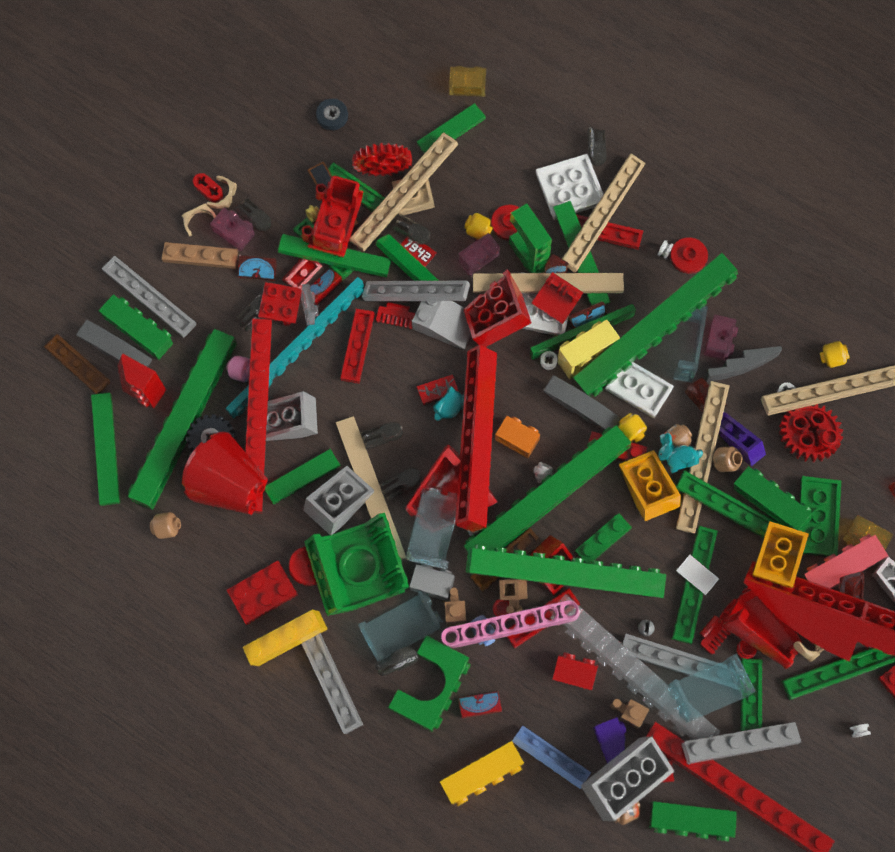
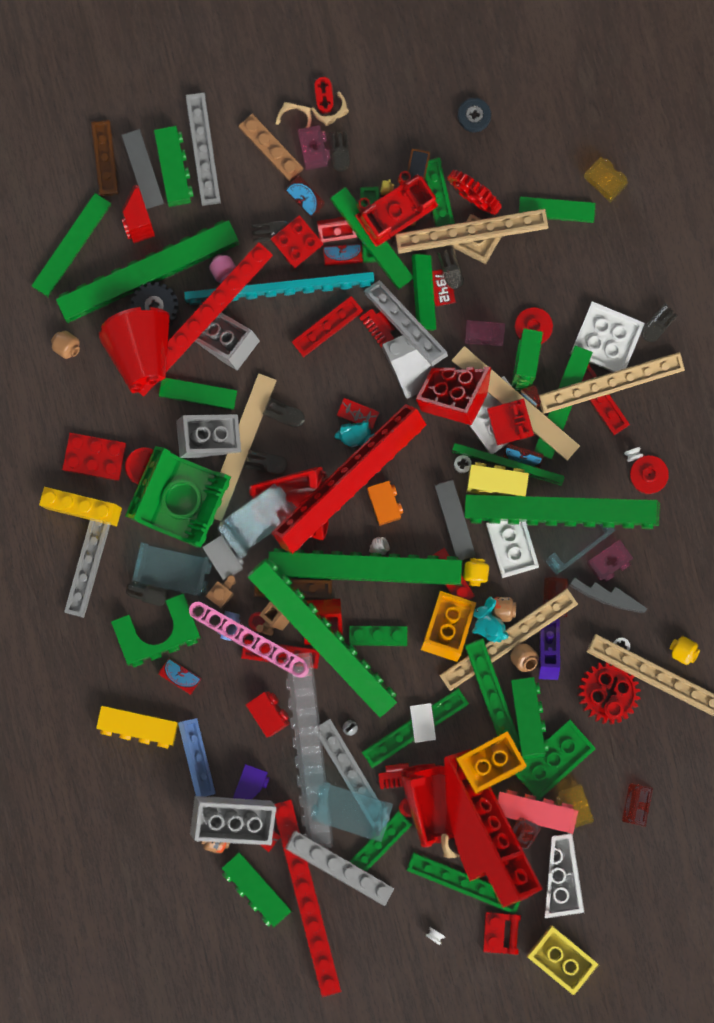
camera: 35 degrees right, 10 degrees up
(308, 301) = (319, 258): clear plate -> none
(477, 226) = (504, 309): yellow head -> none
(632, 713) = (281, 778): medium nougat brick -> none

